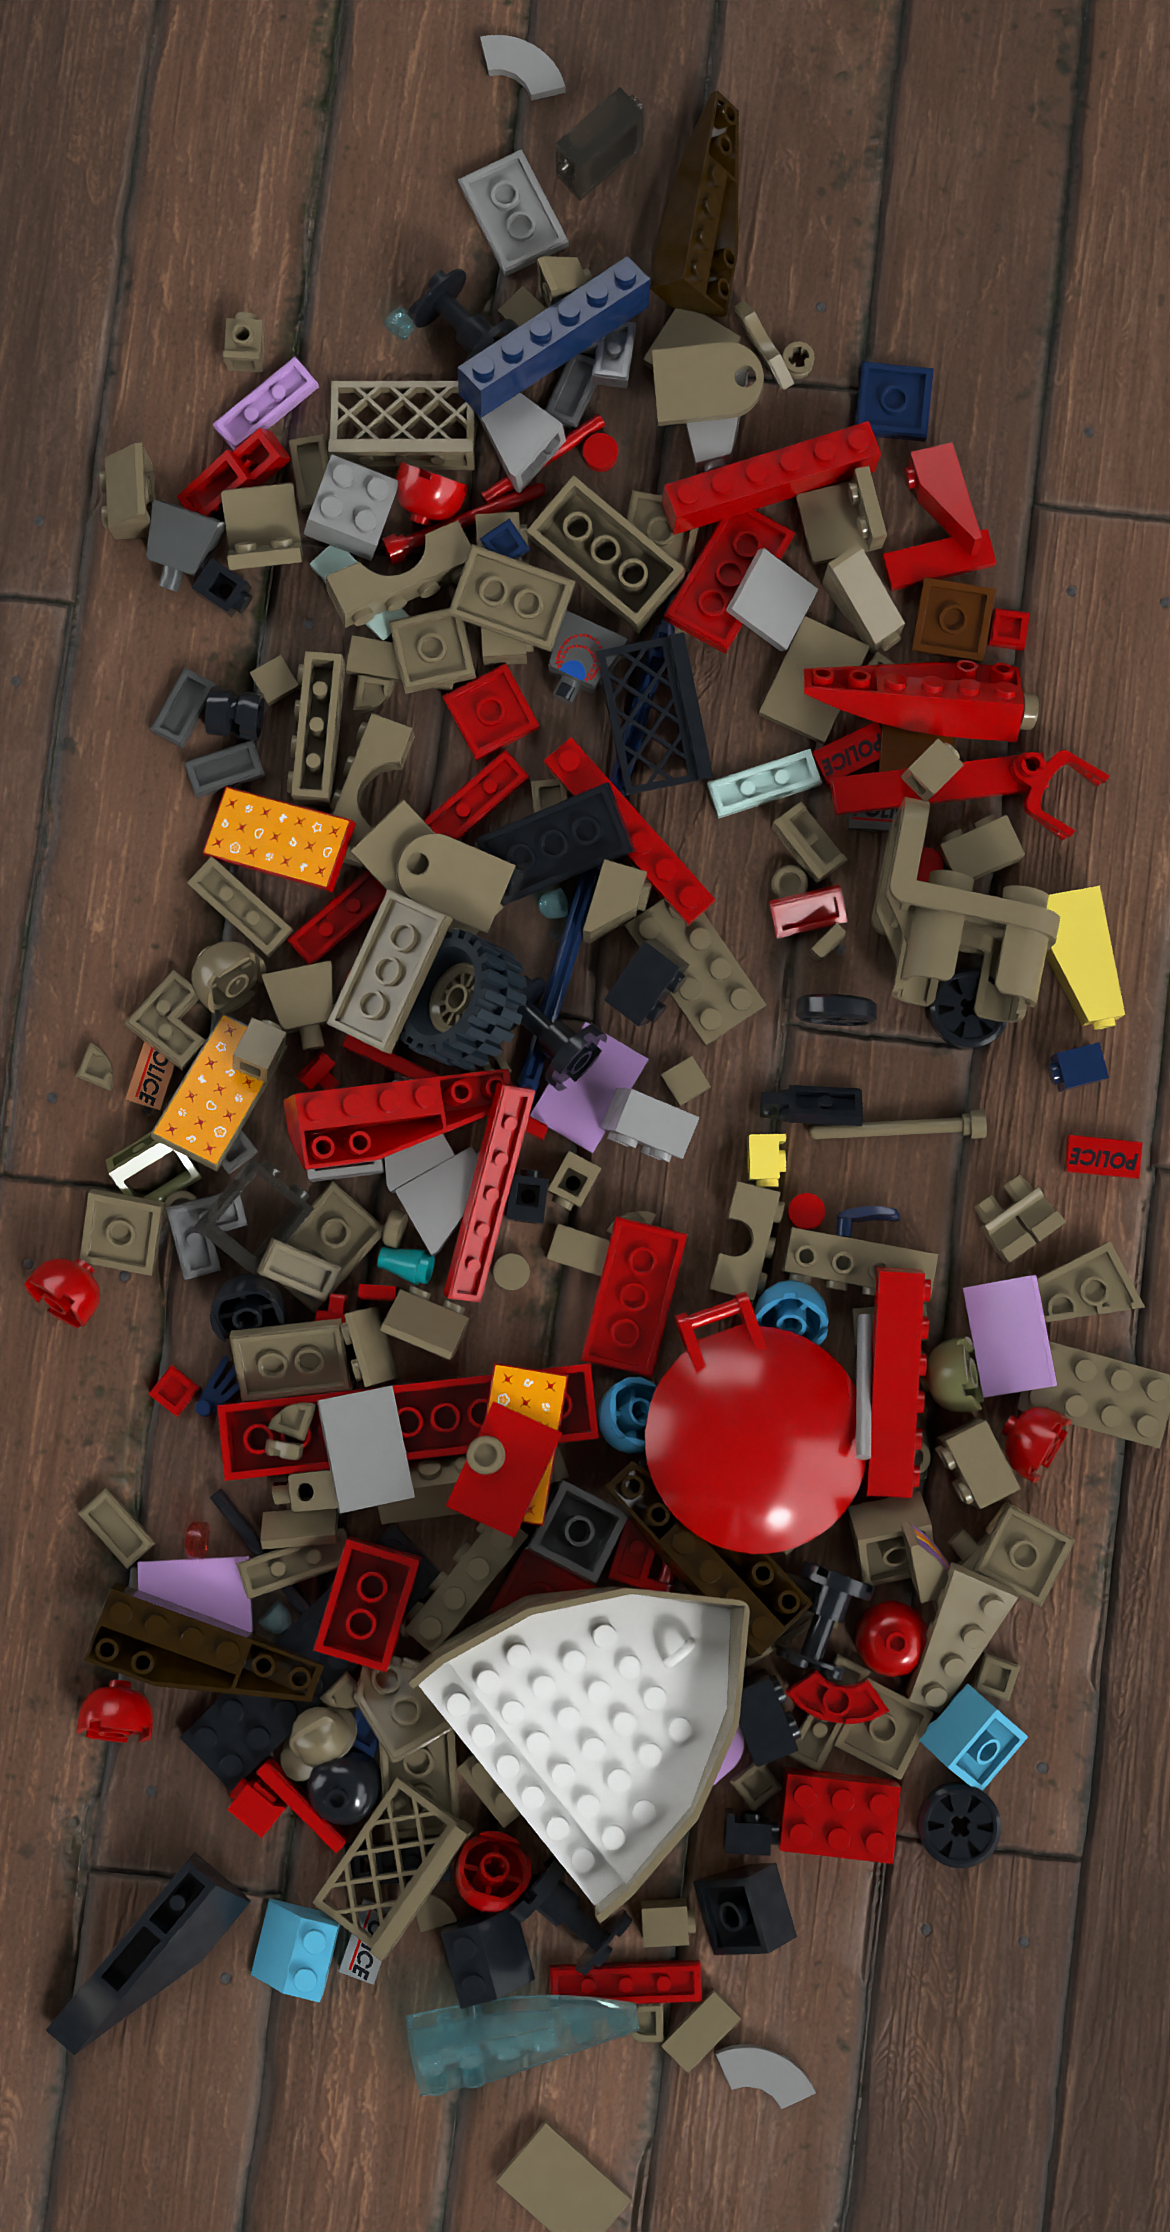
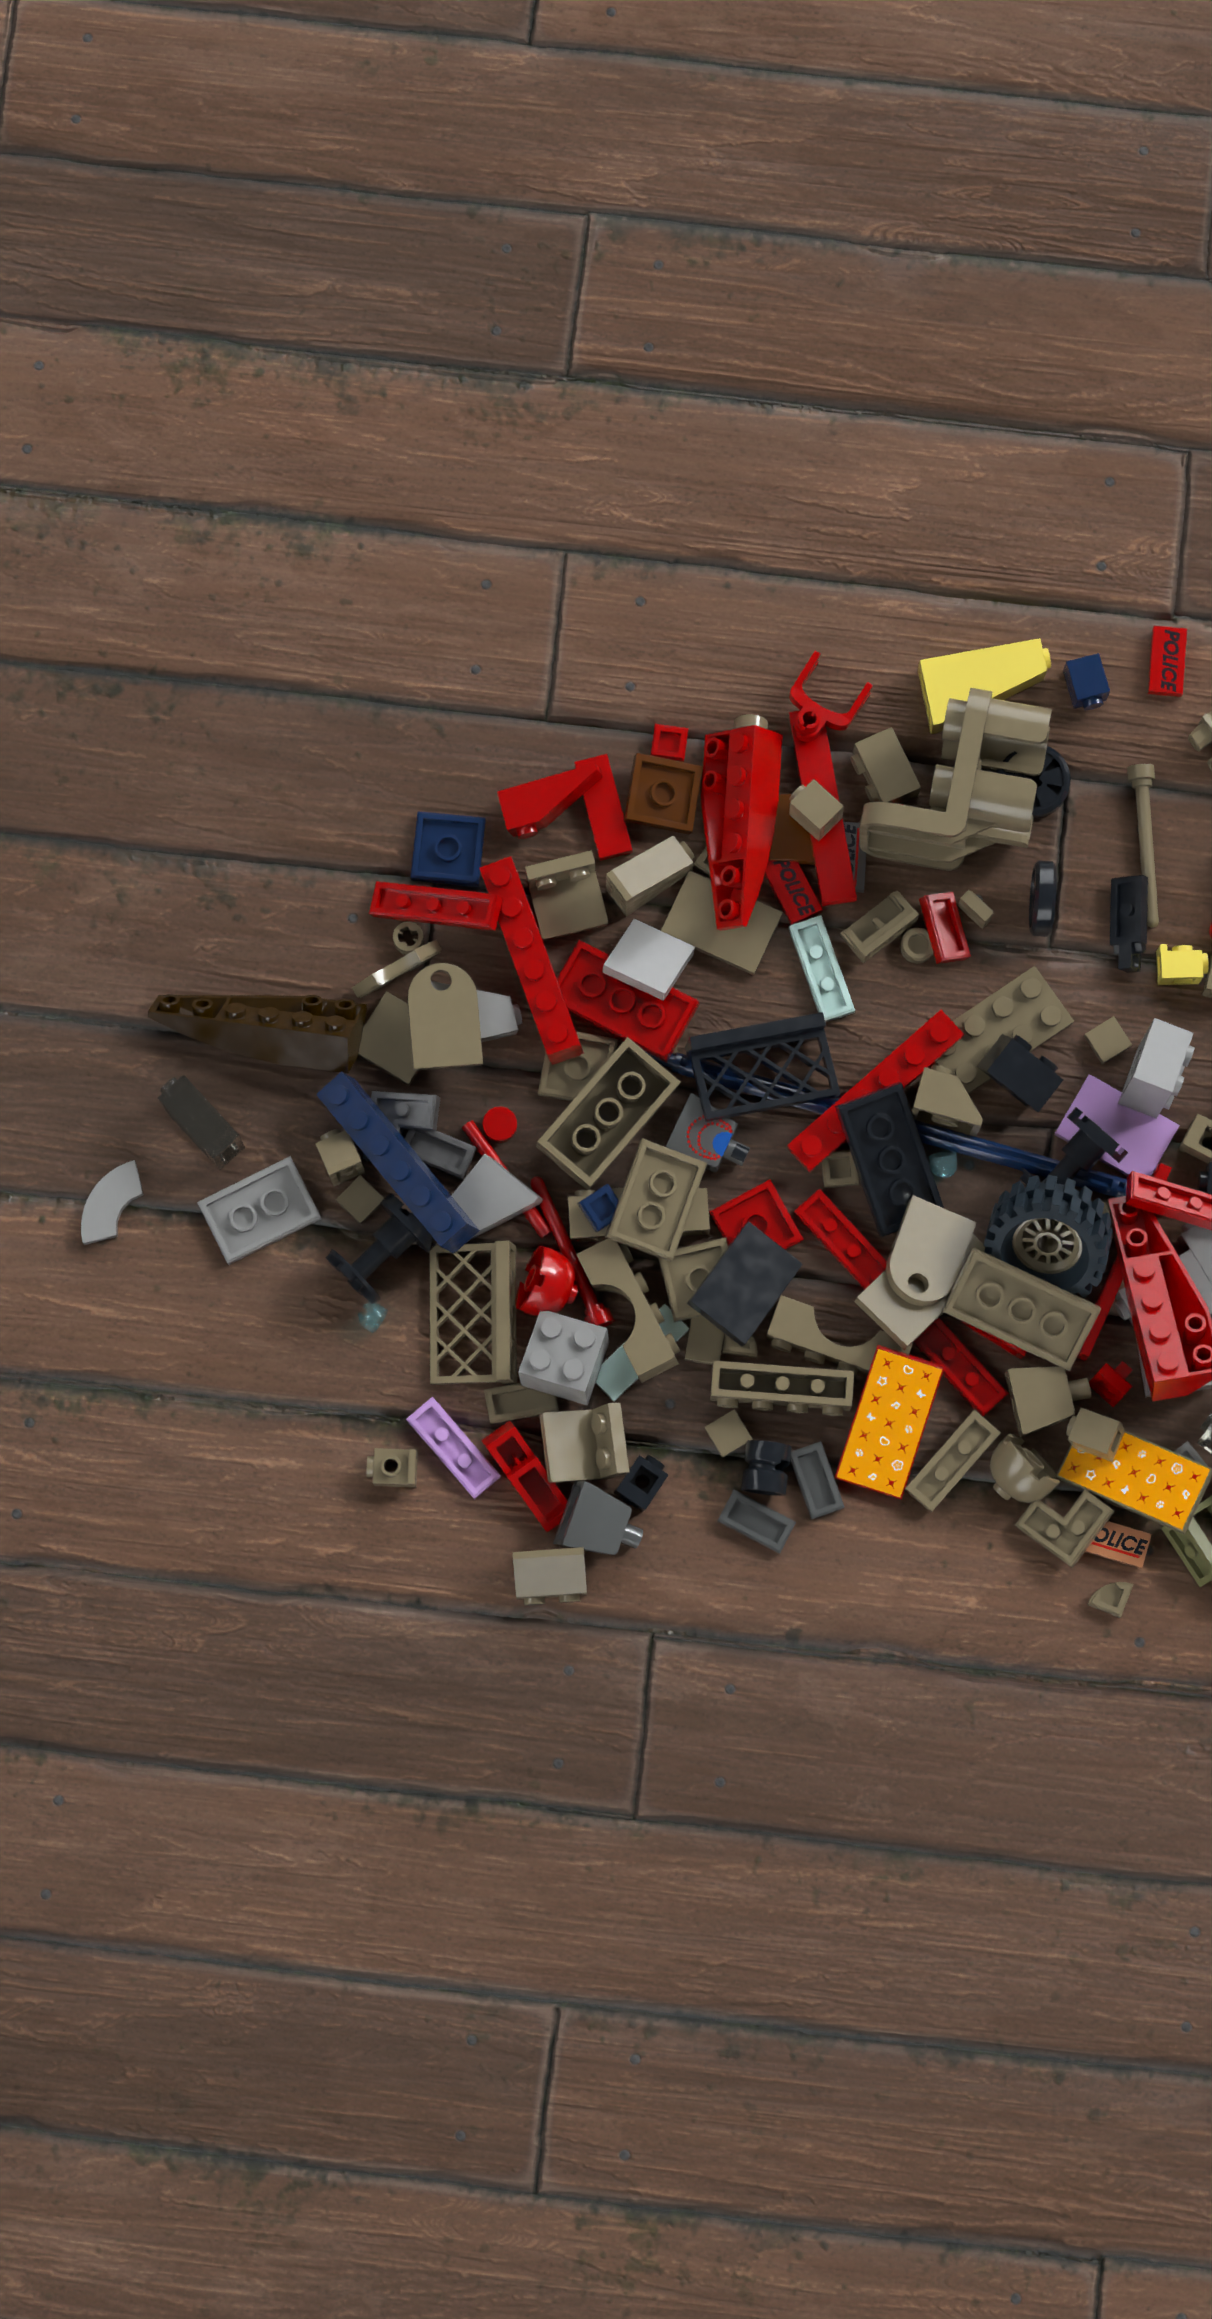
camera: 90 degrees left, 5 degrees down
(424, 691) = (745, 1283): none -> black tile
(828, 380) = (435, 905): none -> red tile

